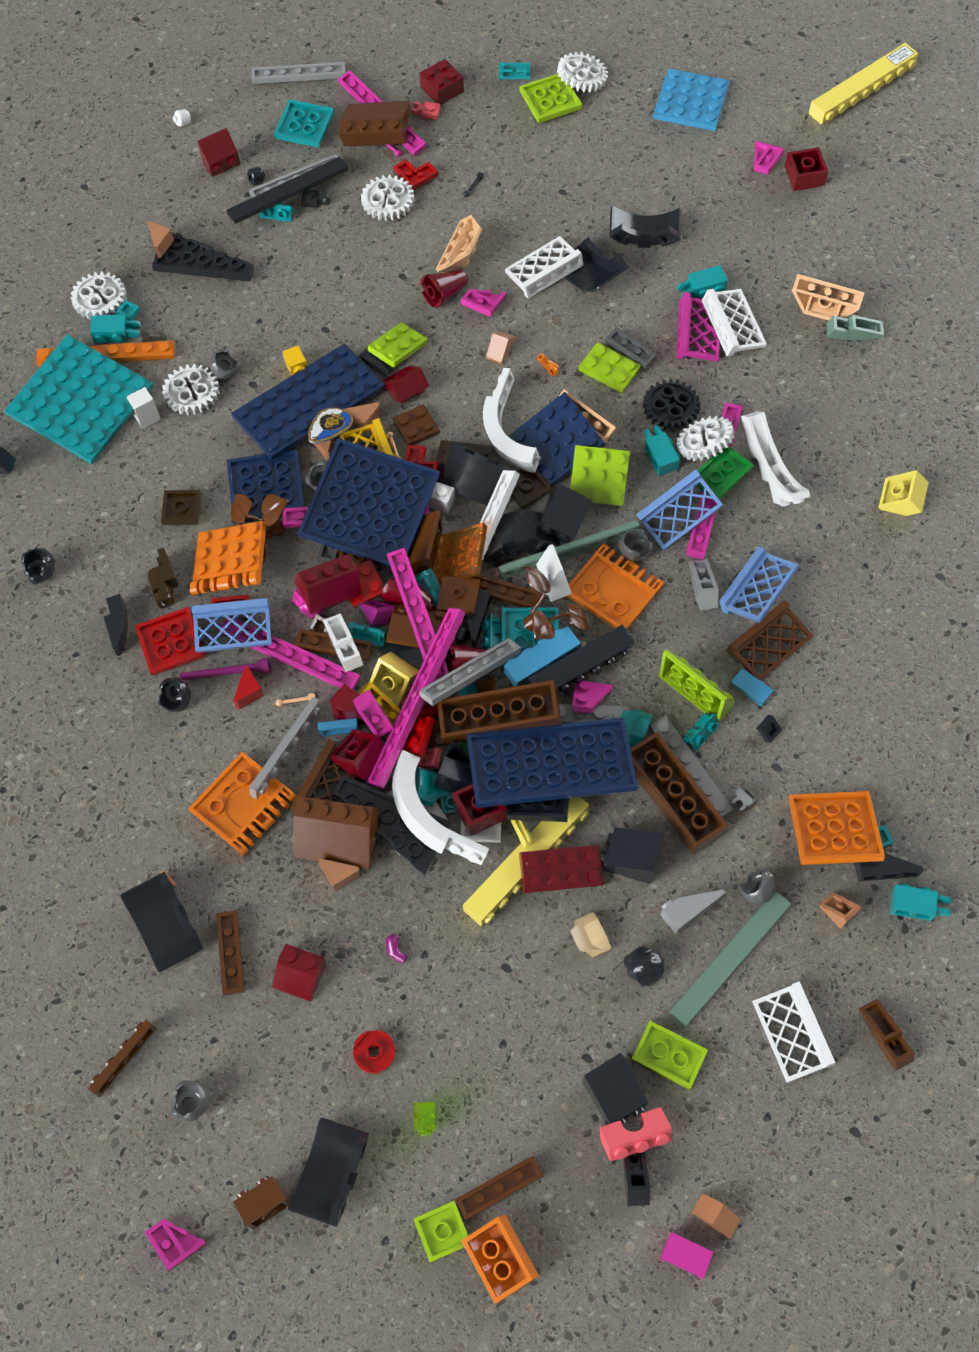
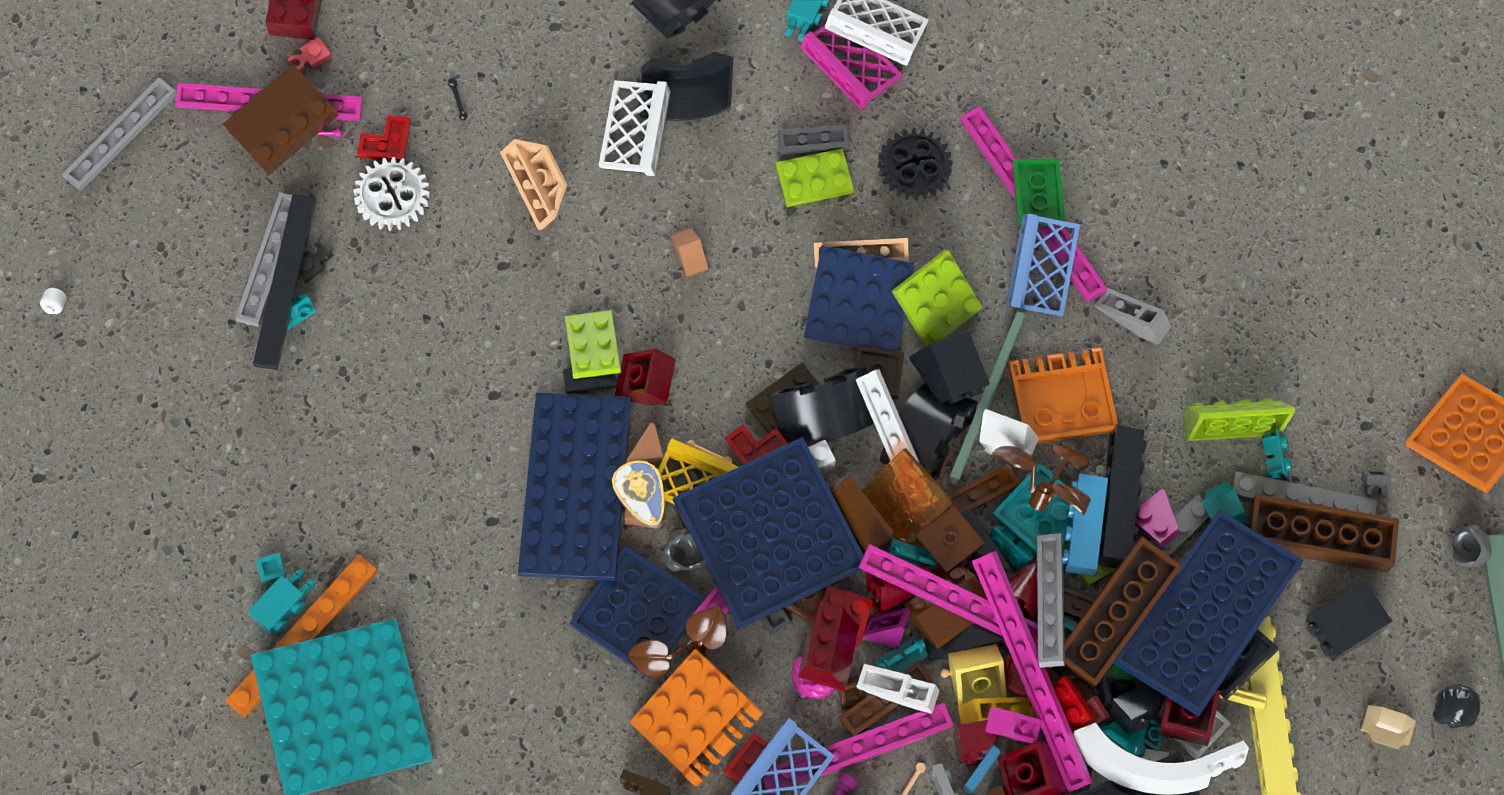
camera: 55 degrees left, 5 degrees up
(91, 303) = (216, 603): white gear -> none
(144, 408) = (427, 652): white panel -> none
(161, 238) = (212, 458): nougat slope -> none
(179, 396) = (435, 607): white gear -> none
(181, 507) = (582, 714): dark brown plate -> none
(198, 259) = (265, 448): black wing -> none
(218, 152) = (156, 306): dark red slope -> none
(223, 365) = (449, 530): dark grey hair -> none
(255, 175) = (219, 294): black piece -> none
(294, 360) = (512, 457): yellow brick -> none
(304, 123) = (198, 187): teal plate -> none
(416, 425) = (703, 410): reddish brown plate -> none
(442, 286) = (566, 241): dark red cone -> none
(483, 301) = (618, 219): dark pink wing -> none
(515, 454) = (816, 353): white arch -> none
(549, 365) = (758, 228): orange arm -> none
(561, 869) = (1308, 696): dark red plate -> none
(635, 545) = (1040, 337): dark grey hair -> none
(661, 451) = (956, 220): teal hinge -> none
(686, 909) = (1436, 629): light grey slope -> none
(717, 433) = (999, 152): white gear -> none
(743, 581) = (1165, 277): medium blue fence -> none
(751, 687) = (1273, 373): dark azure tile -> none
(758, 629) = (1223, 315): reddish brown fence -> none
(769, 728) = (1328, 397): black plate -> none
(772, 469) = (1074, 146): white arch -> none
(904, 493) = (1203, 64): light yellow slope -> none

